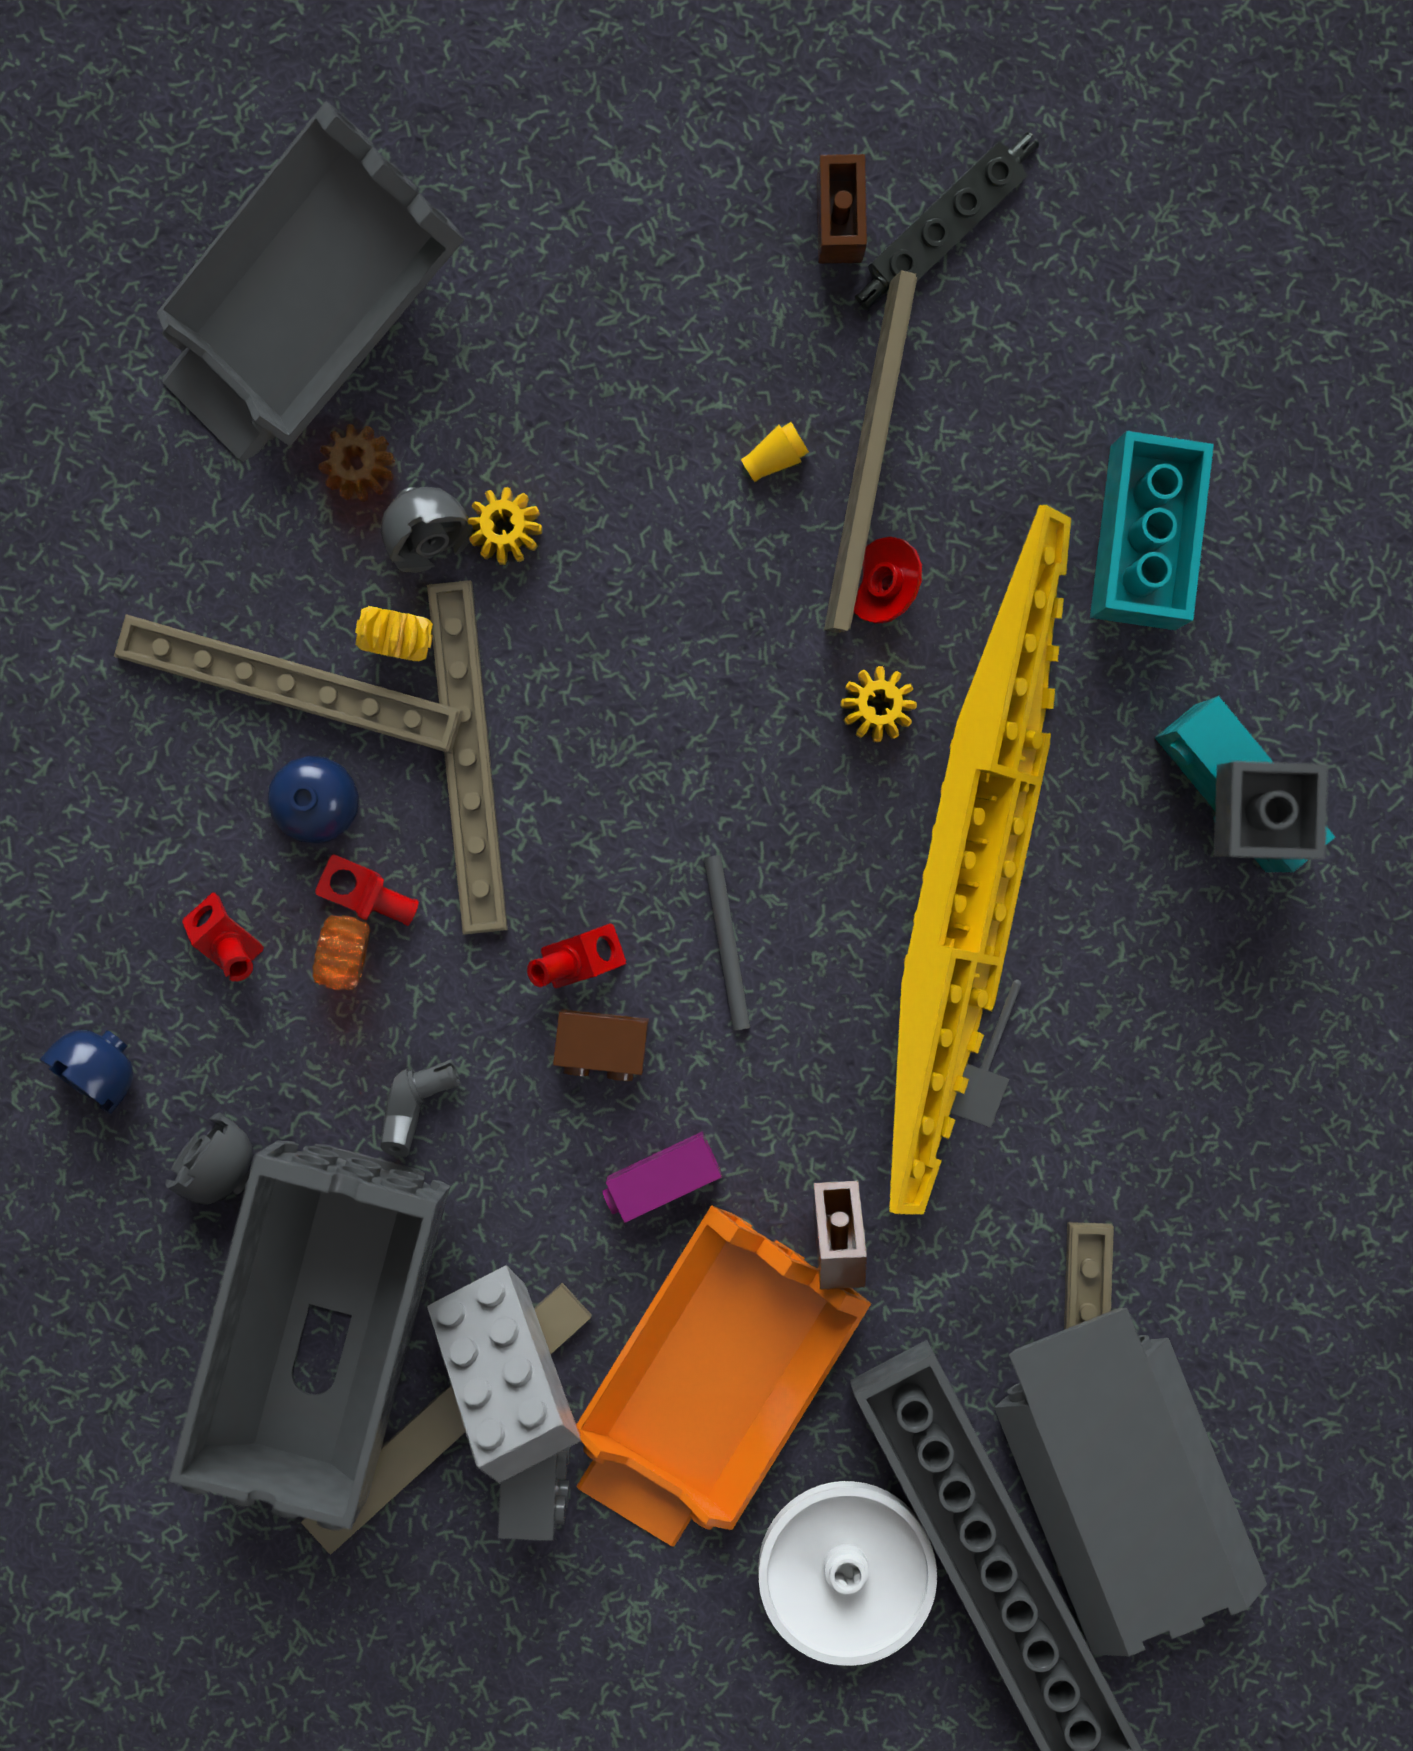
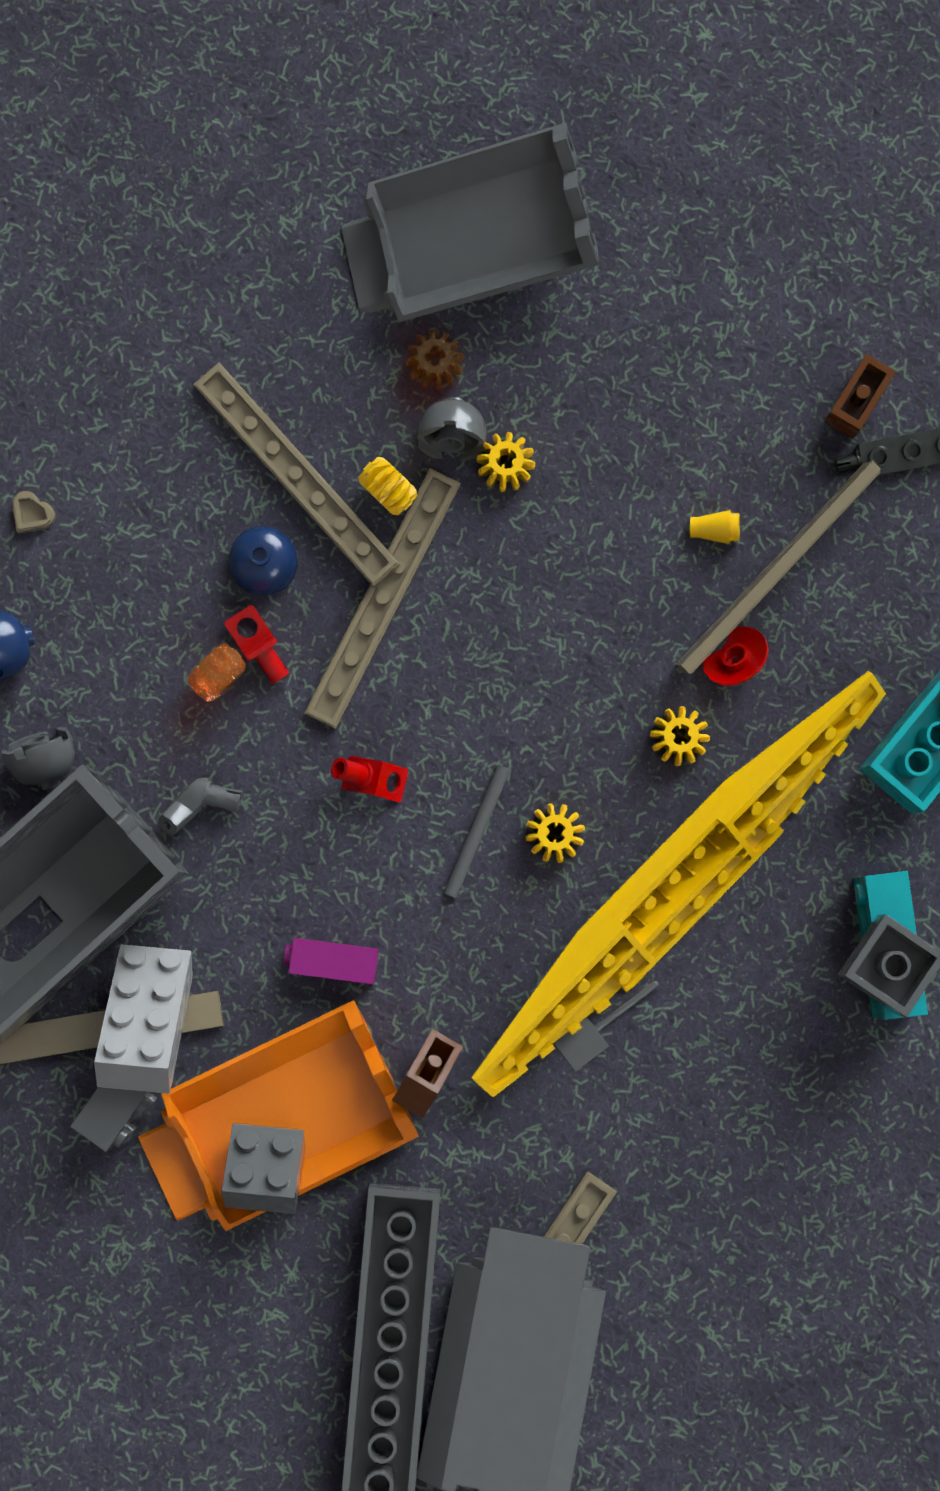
camera: 30 degrees right, 5 degrees down
(32, 906) = (31, 513): none -> dark tan tile
(222, 939) = (143, 614): red bracket -> none
(600, 1044) = (350, 844): reddish brown brick -> none
(730, 1444) = (263, 1168): none -> dark grey brick
(824, 885) = (567, 833): none -> yellow gear
(847, 1573) = (284, 1311): white dish -> none

